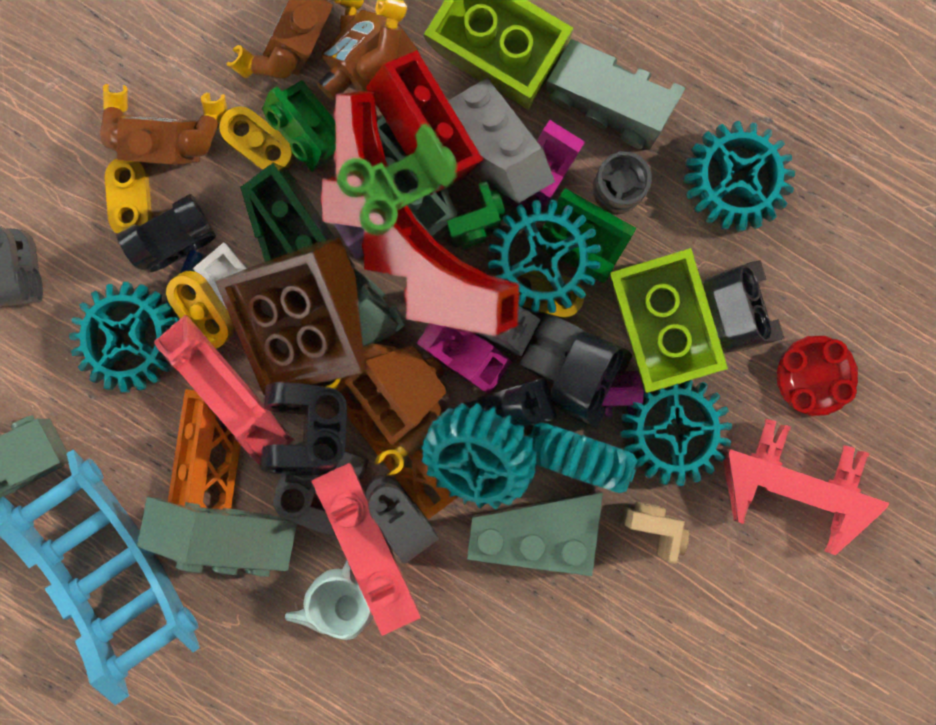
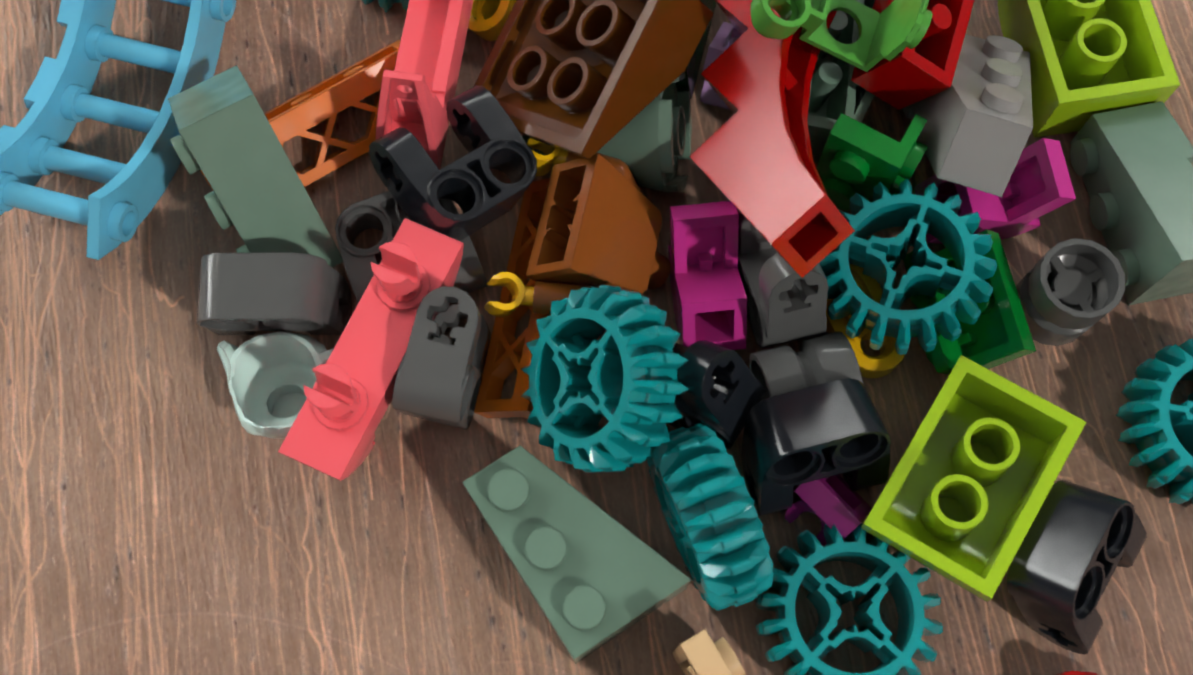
camera: 45 degrees right, 15 degrees down
(293, 576) = (271, 294): none -> dark grey piece

